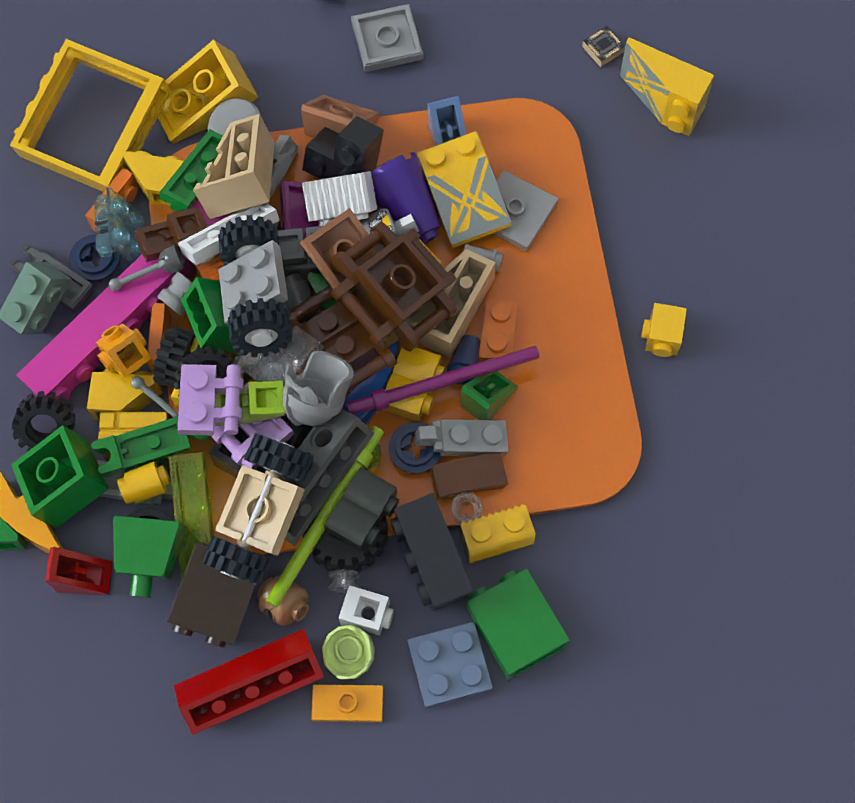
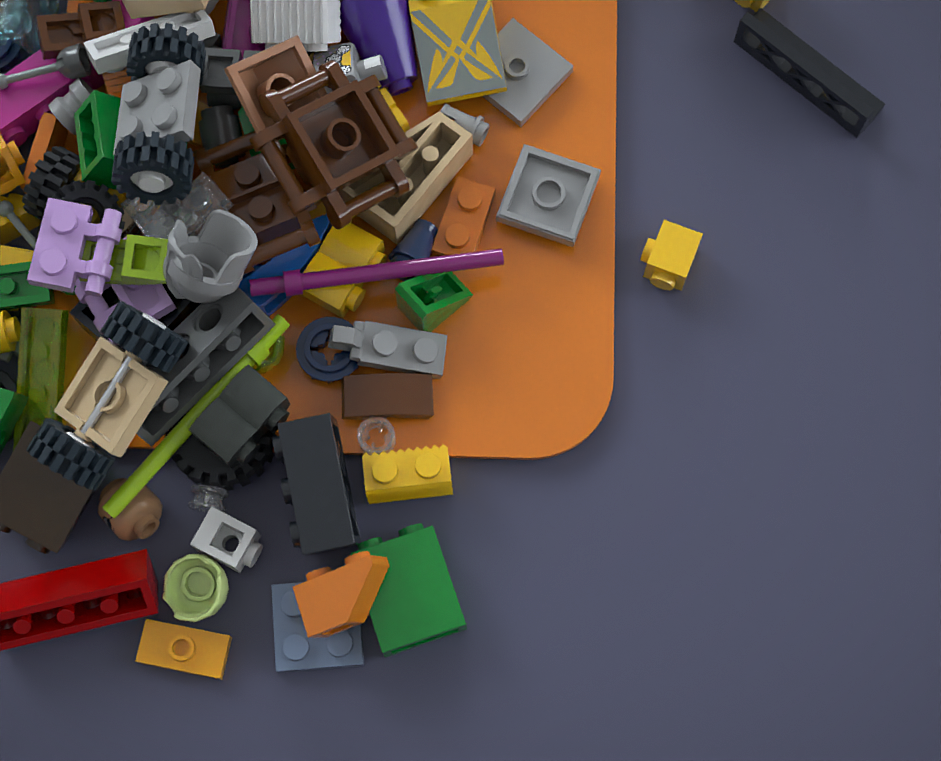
camera: 10 degrees right, 5 degrees up
(469, 636) = (340, 597): none -> orange slope
(560, 300) = (548, 195): none -> light grey plate
(737, 173) = (807, 71): none -> black fence

